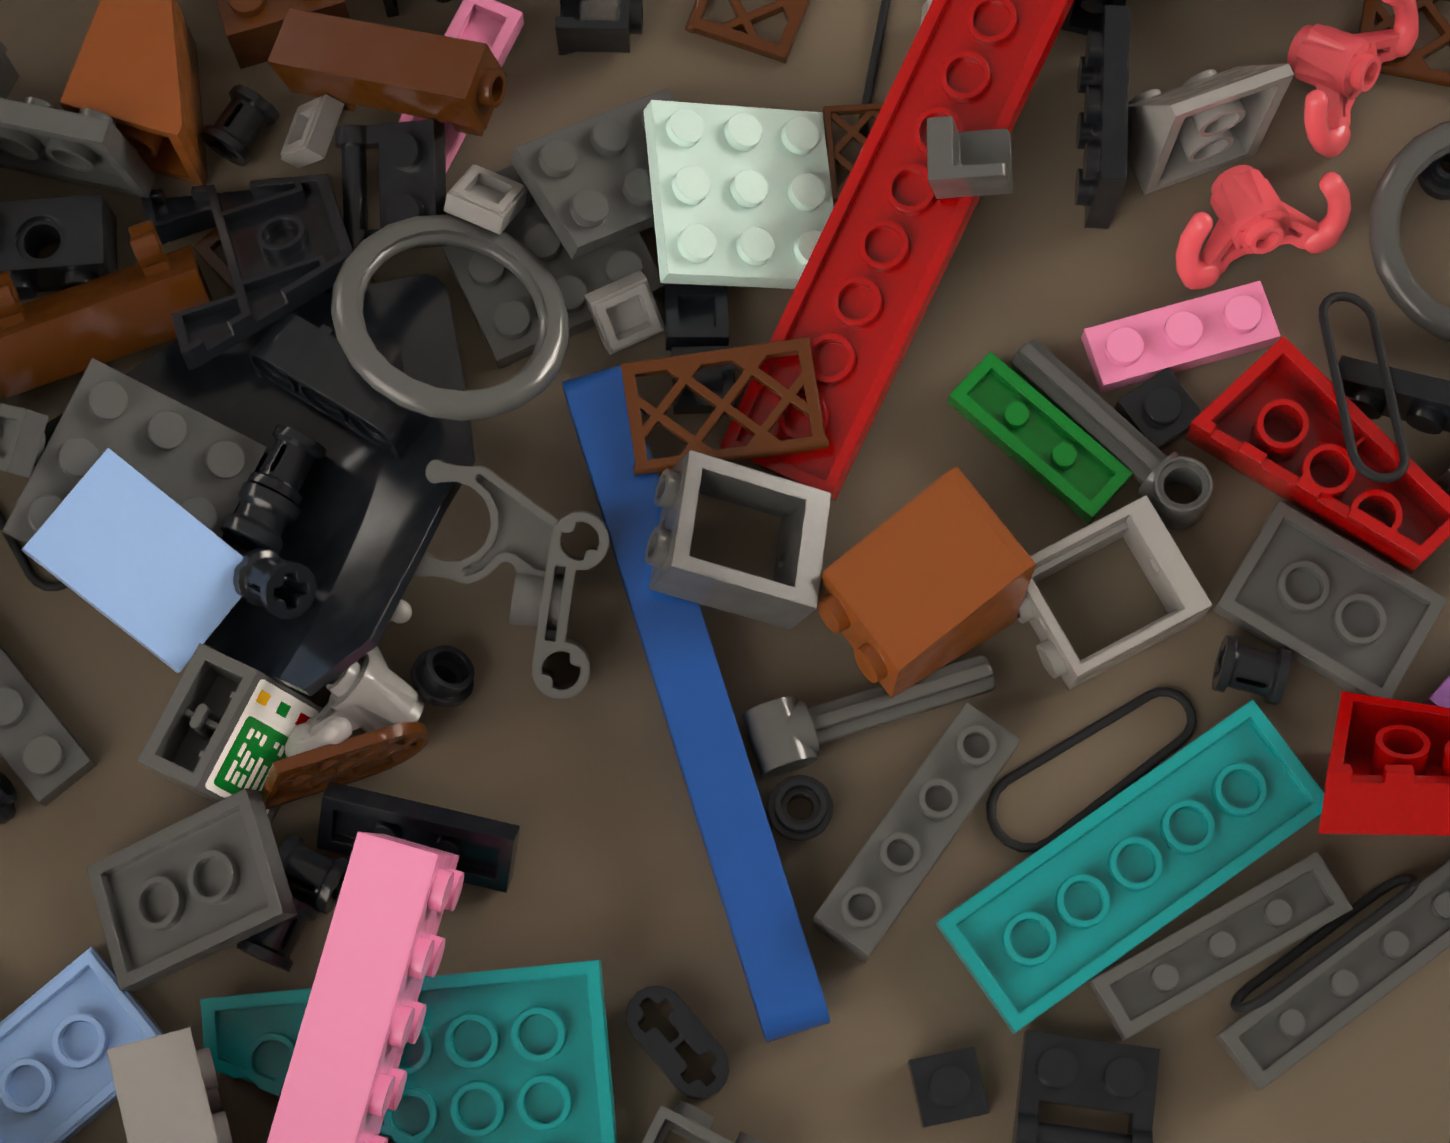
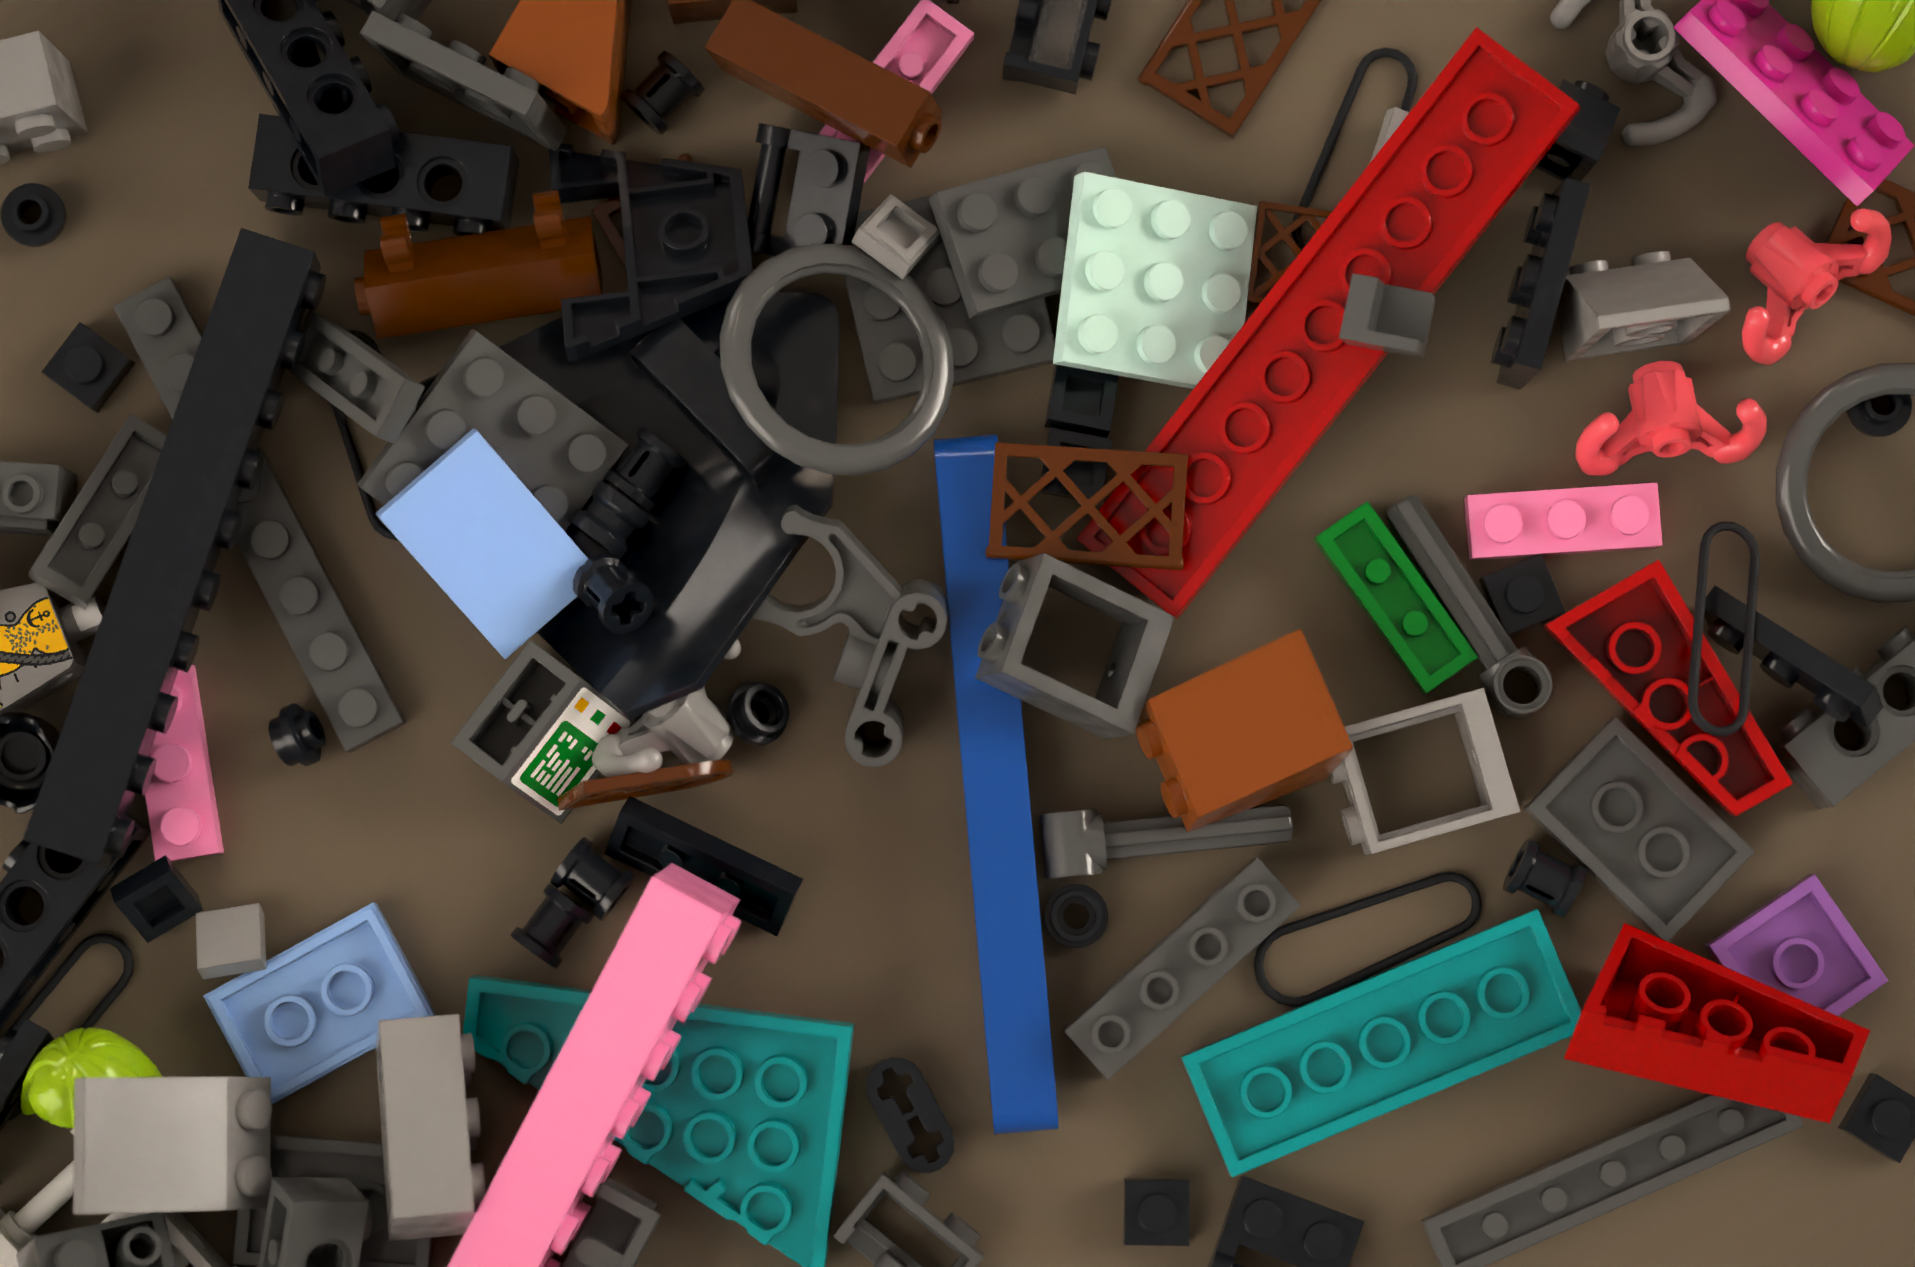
camera: 10 degrees right, 10 degrees up
(191, 890) = (478, 874): dark grey plate -> none
(311, 131) = (734, 116): light grey tile -> none
(625, 312) = (1011, 379): light grey tile -> none
(1220, 946) = (1446, 1137): dark grey plate -> none
(1412, 885) = (1551, 1166): black piece -> none

